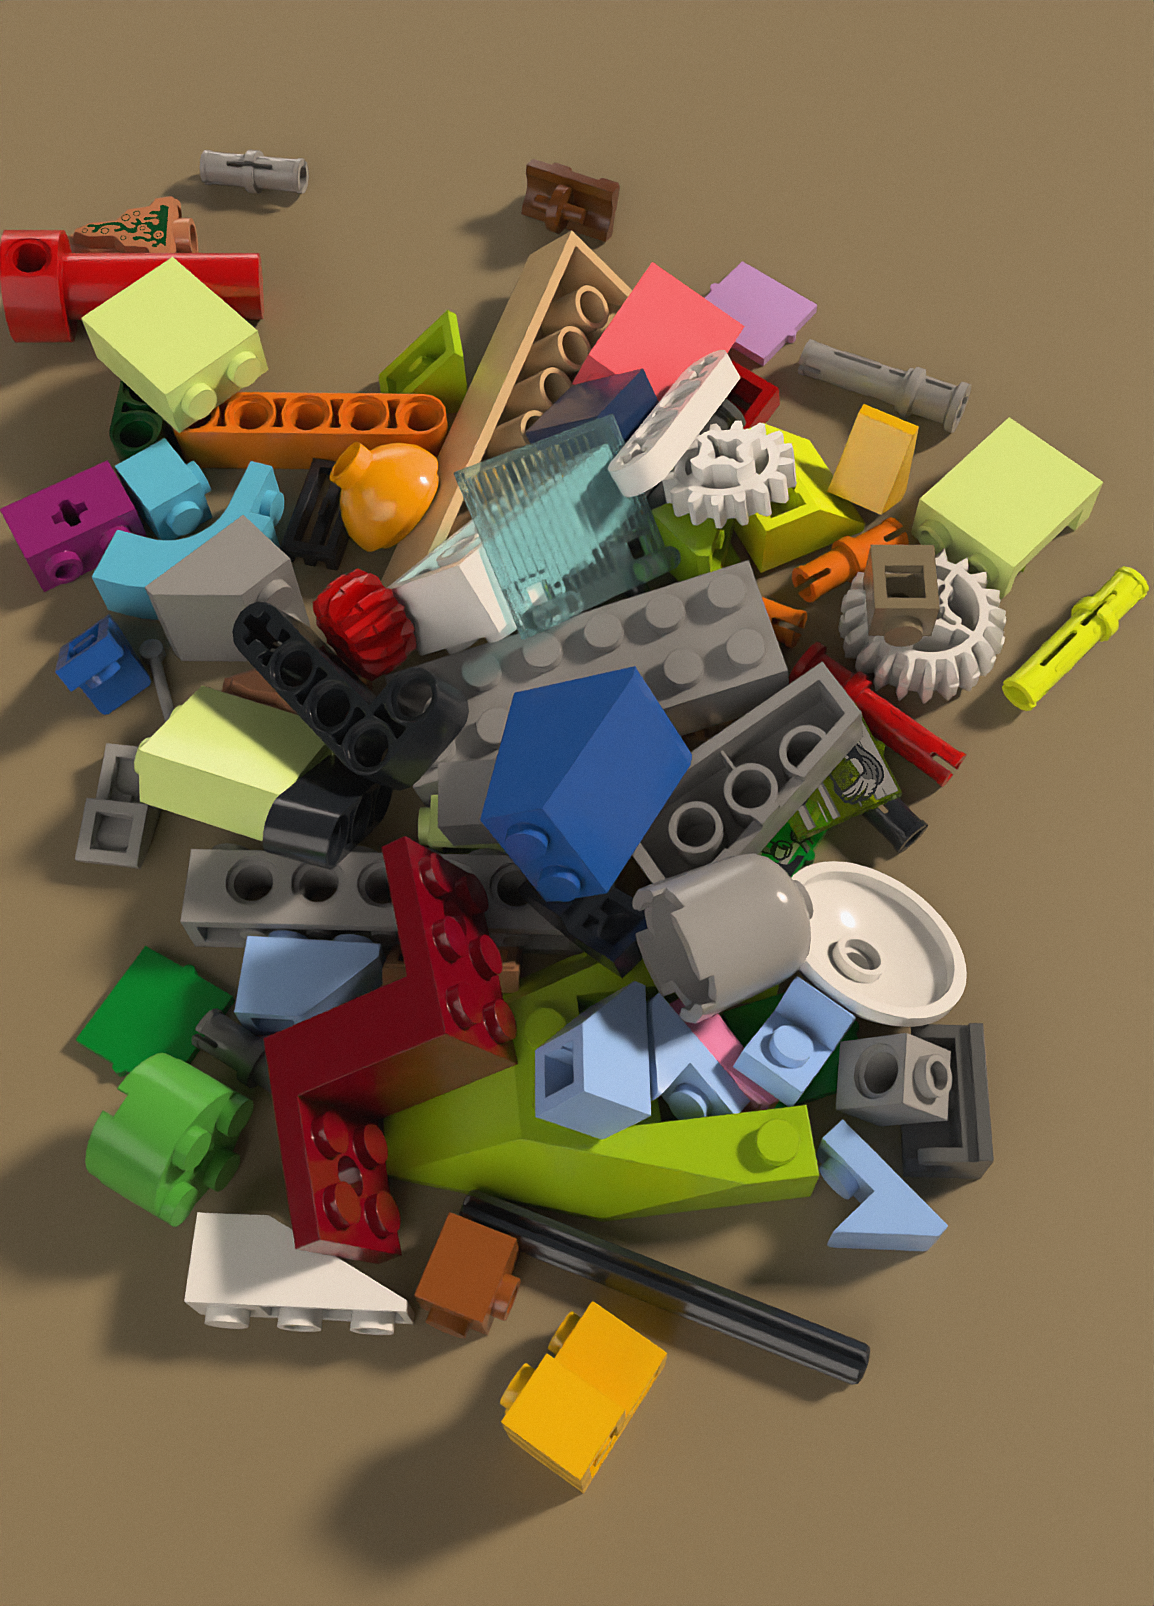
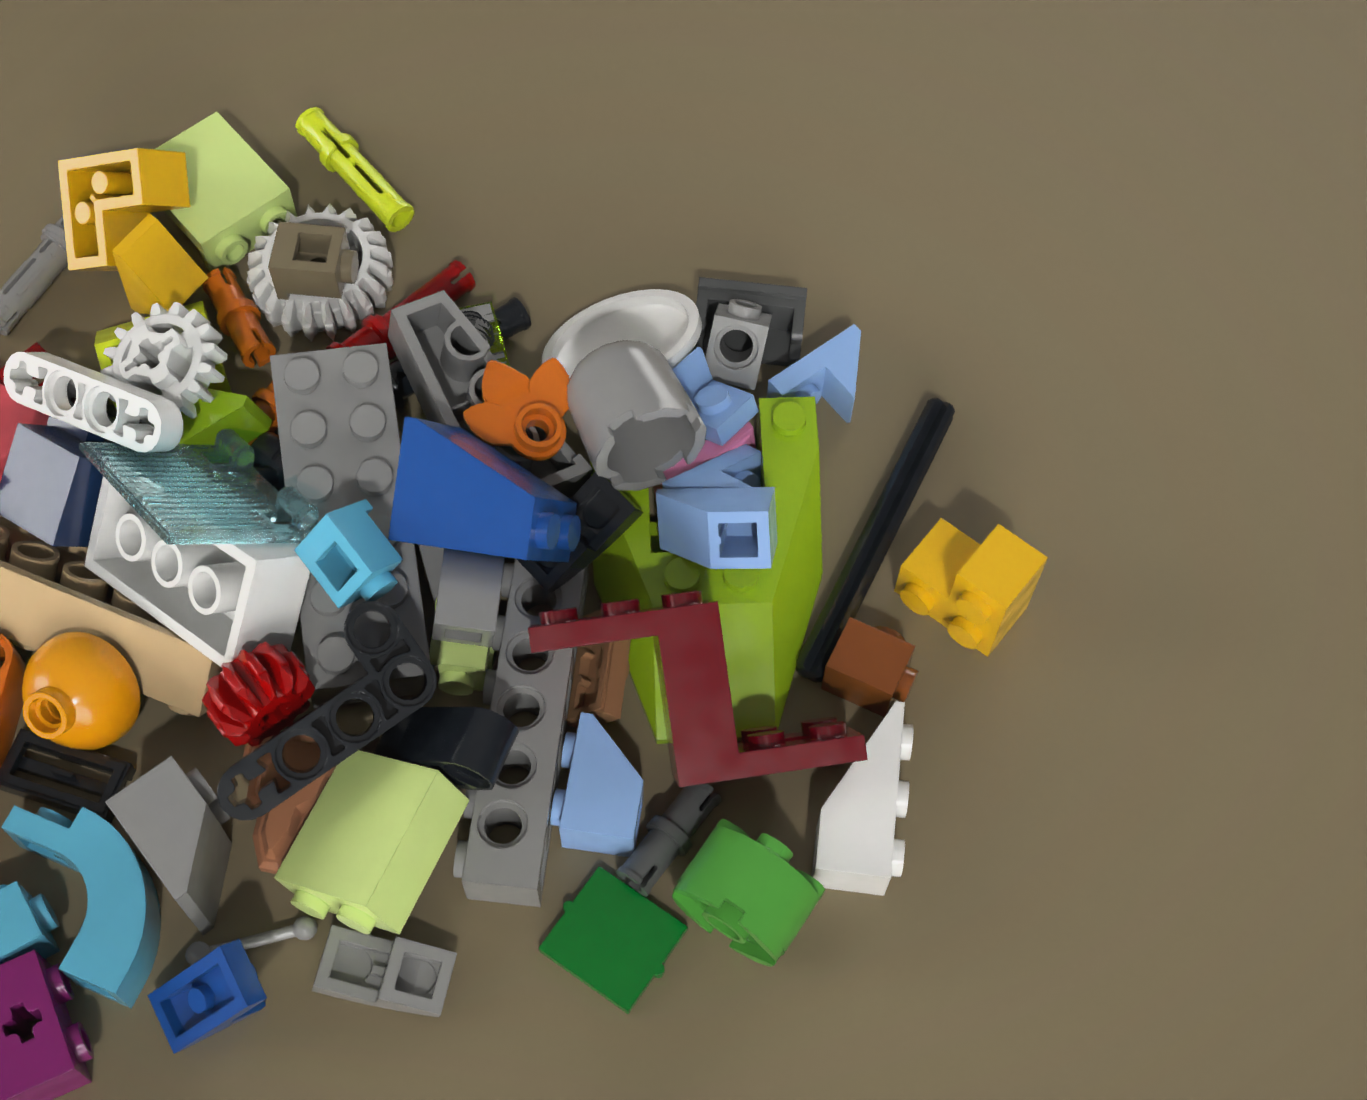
camera: 90 degrees left, 0 degrees up
(492, 661) = (350, 555): none -> medium azure brick
(730, 812) = (518, 403): none -> orange plate
(954, 407) = (111, 195): none -> yellow brick

